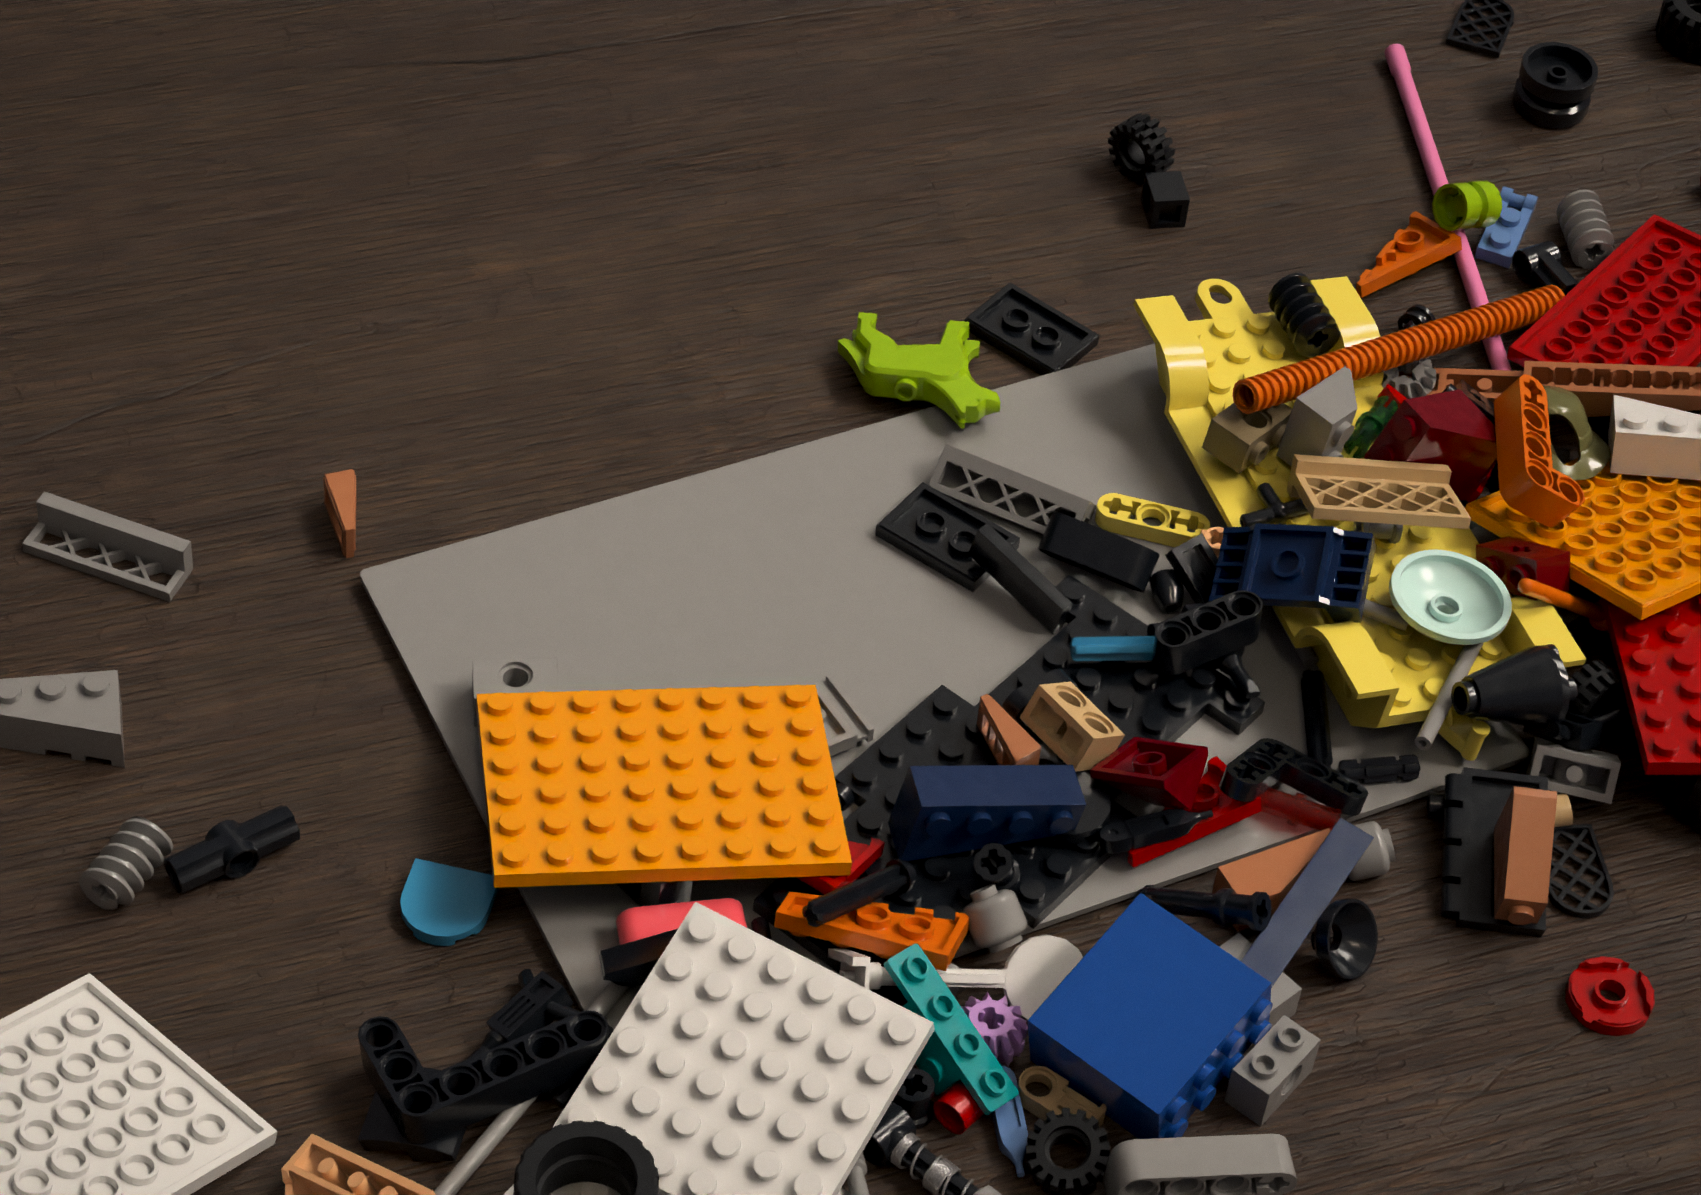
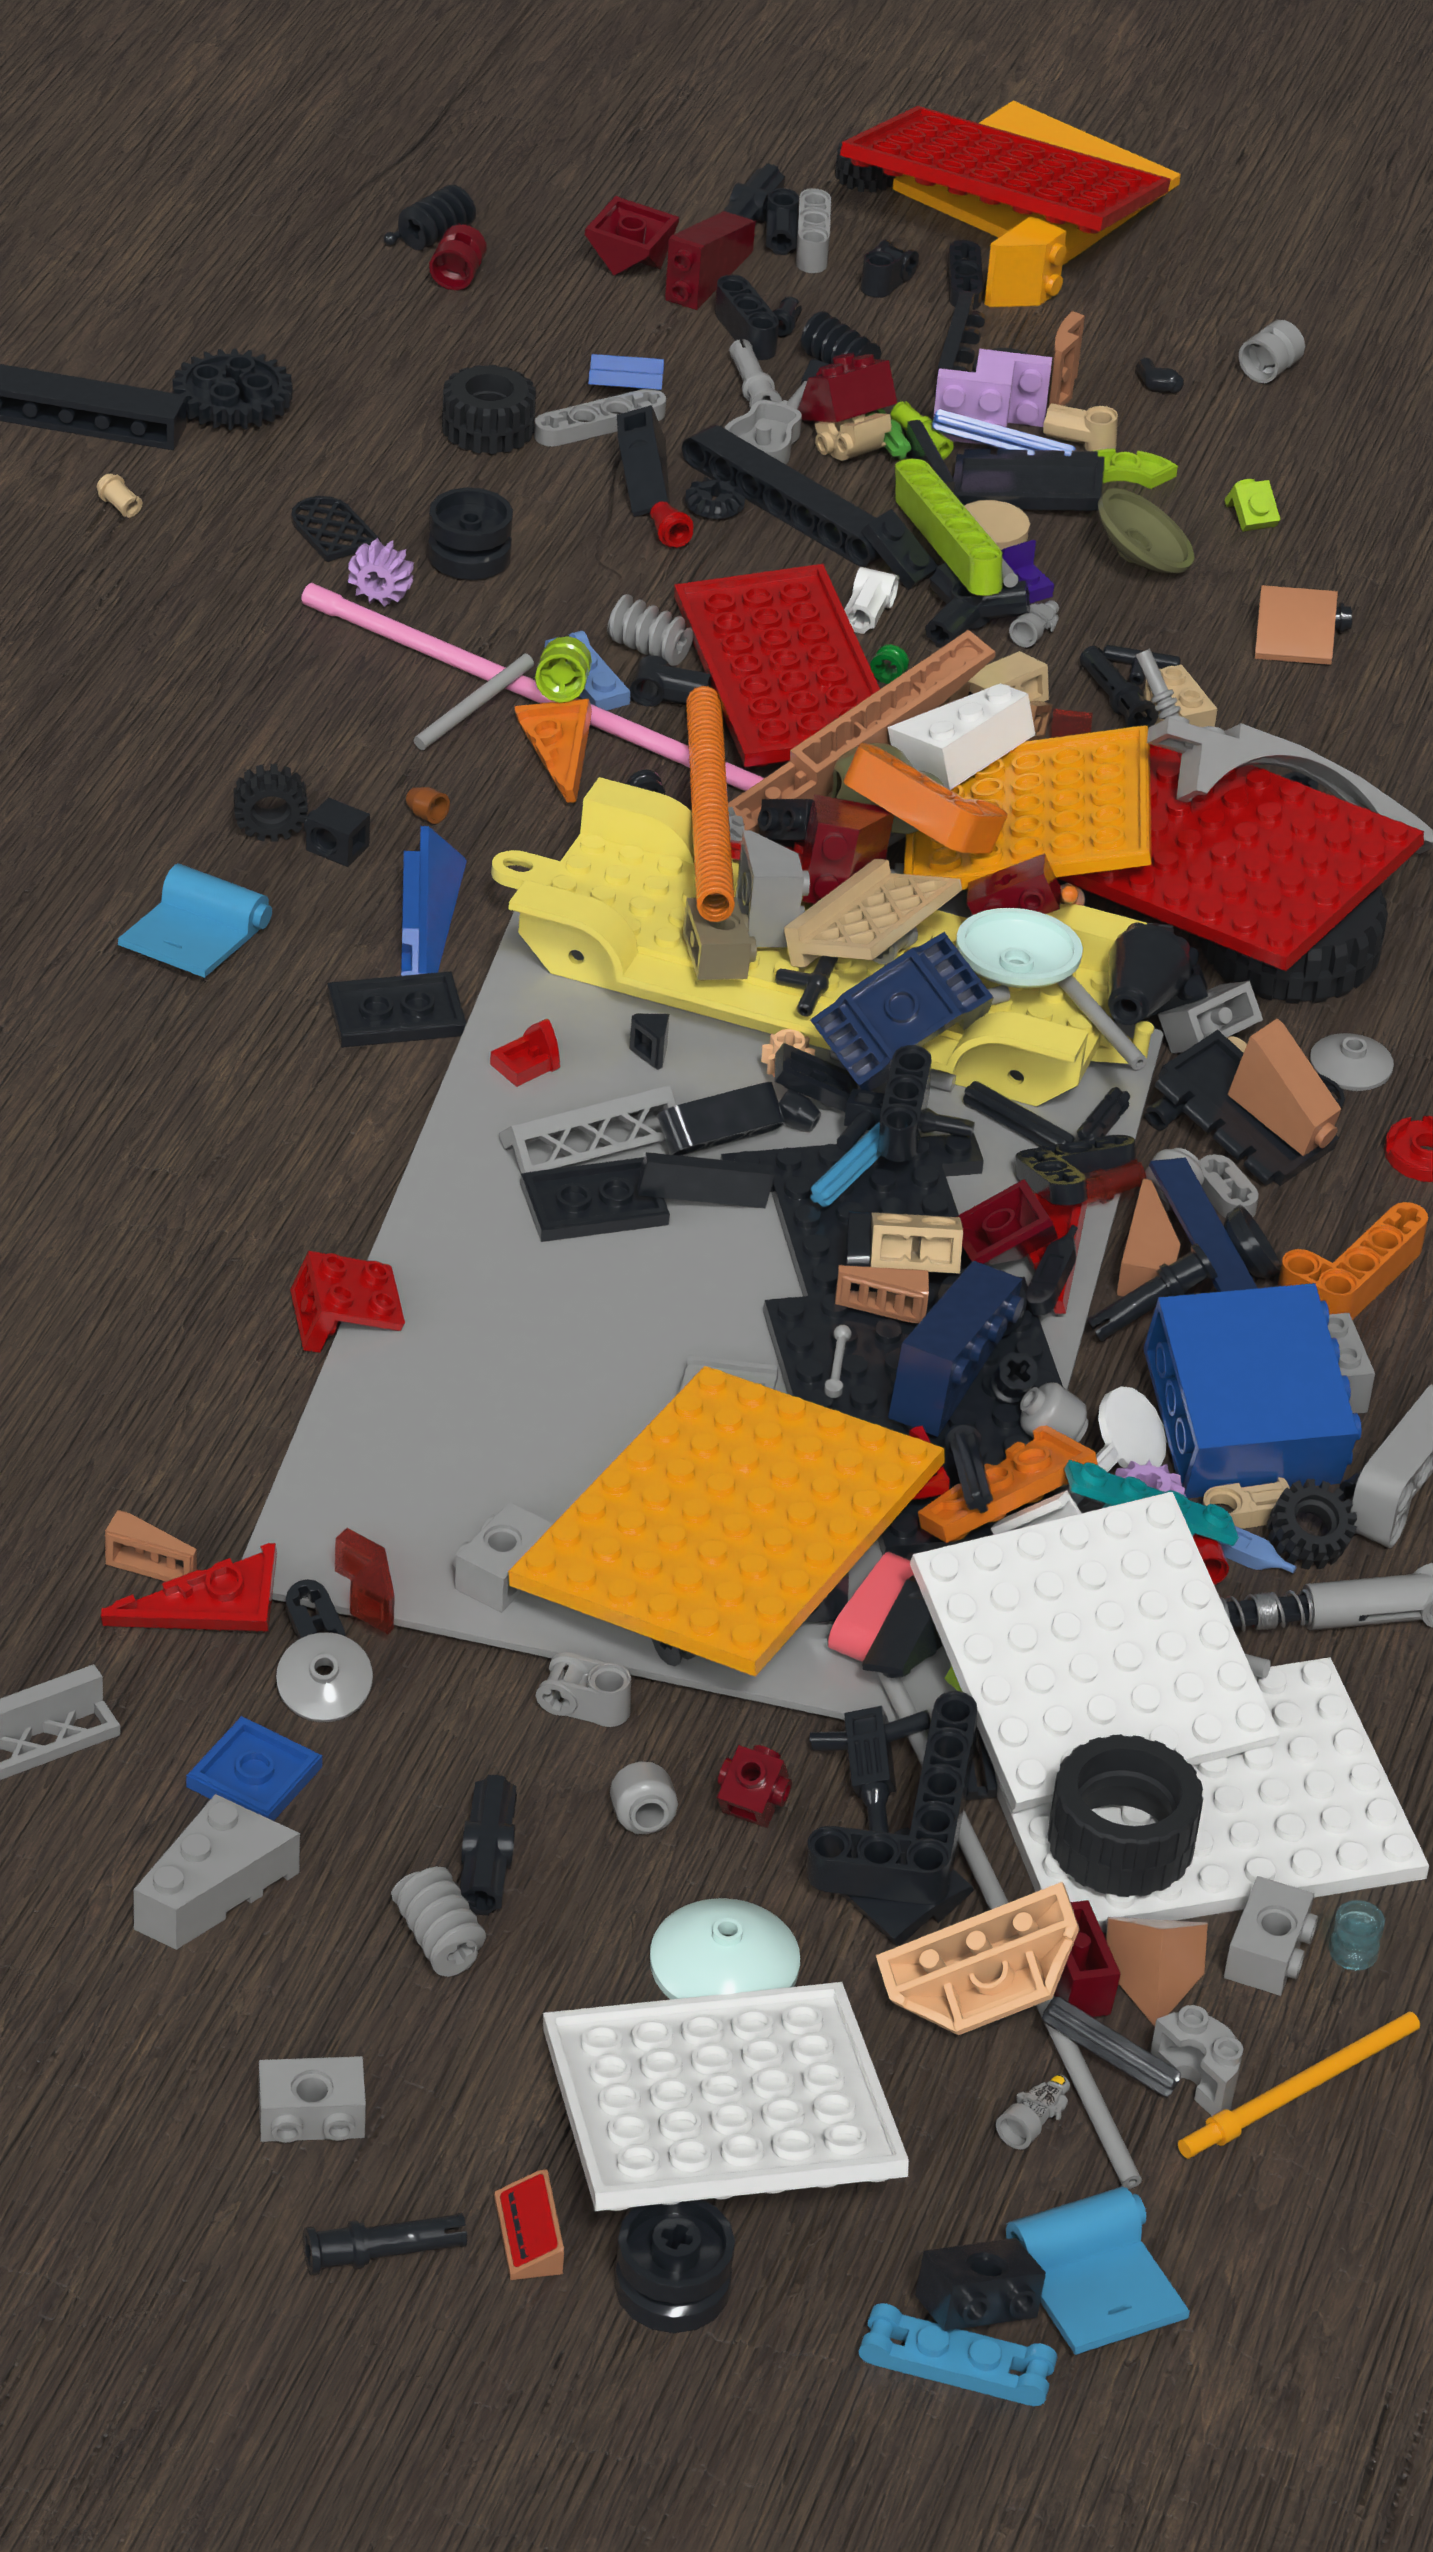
camera: 50 degrees left, 5 degrees down
(194, 687) = (255, 1769): none -> blue tile
(261, 1067) = (723, 1950): none -> light aqua dish
(324, 678) = (324, 1696): none -> light grey dish
(334, 572) = (212, 1599): none -> red wing
(358, 908) = (643, 1797): none -> light grey head
(361, 634) = (326, 1615): none -> black beam
(415, 638) = (370, 1577): none -> clear red slope
(426, 962) = (753, 1784): none -> dark red brick
(440, 817) = (590, 1690): none -> light grey piece
(446, 902) = (681, 1739): dark azure tile -> none
(697, 466) = (344, 1290): none -> red bracket
(882, 771) = (834, 1386): none -> light grey hinge
(920, 371) = (386, 1097): lime animal -> none
(989, 191) = (198, 921): none -> dark azure door
(1049, 418) = (528, 1055): none -> red tile
(1140, 508) = (733, 1061): light yellow beam -> none
(1145, 470) = (650, 1037): none -> black slope
(1156, 273) = (429, 900): none -> blue wedge
(1257, 228) = (428, 804): none -> dark orange hose
(1303, 315) = (614, 830): black piece -> none
(1374, 188) = (473, 701): none -> light grey bar
(1407, 1028) = (1366, 1265): none -> orange beam
(1412, 895) = (1233, 1185): none -> light grey beam
(1451, 67) = (380, 572): none -> lavender gear
(1655, 892) = (1352, 1061): none -> light grey dish

